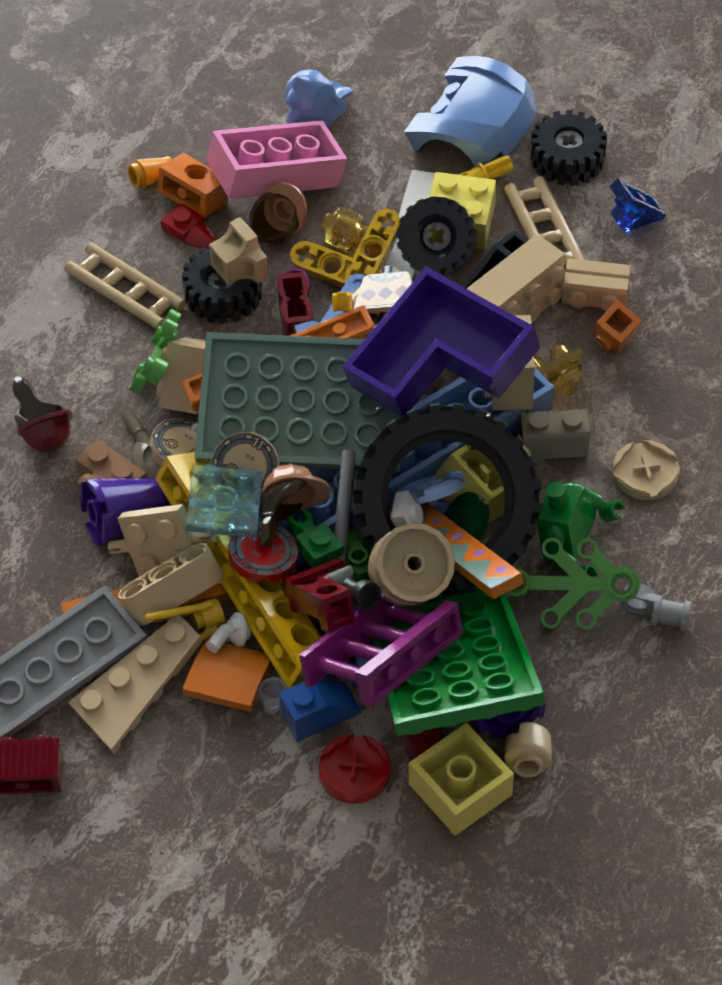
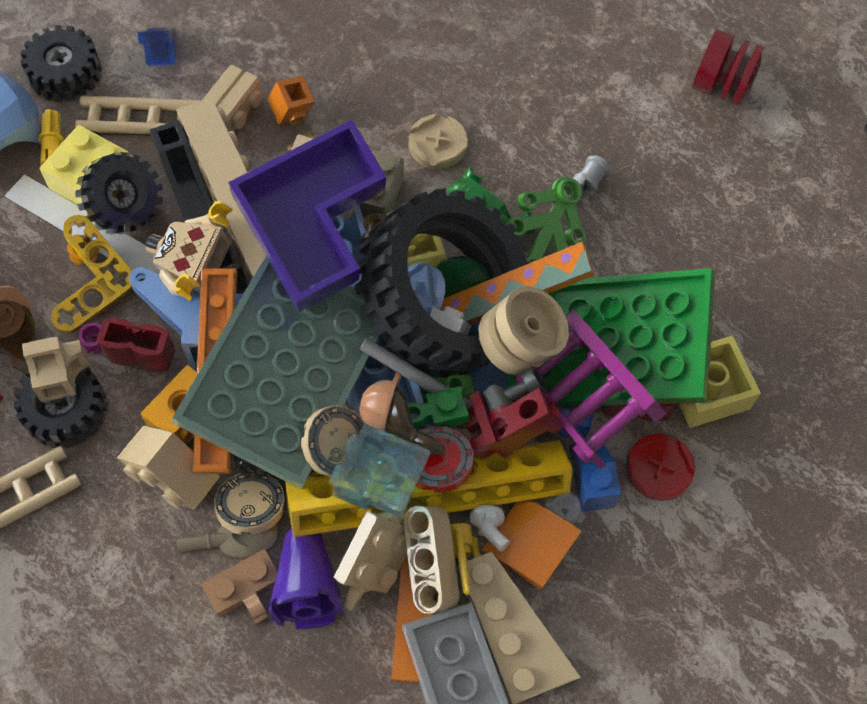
camera: 75 degrees left, 10 degrees up
(40, 423) = (154, 635): piece -> none
(155, 366) = (106, 482): bright green plant -> none
(344, 229) = (55, 271): clear yellow head -> none

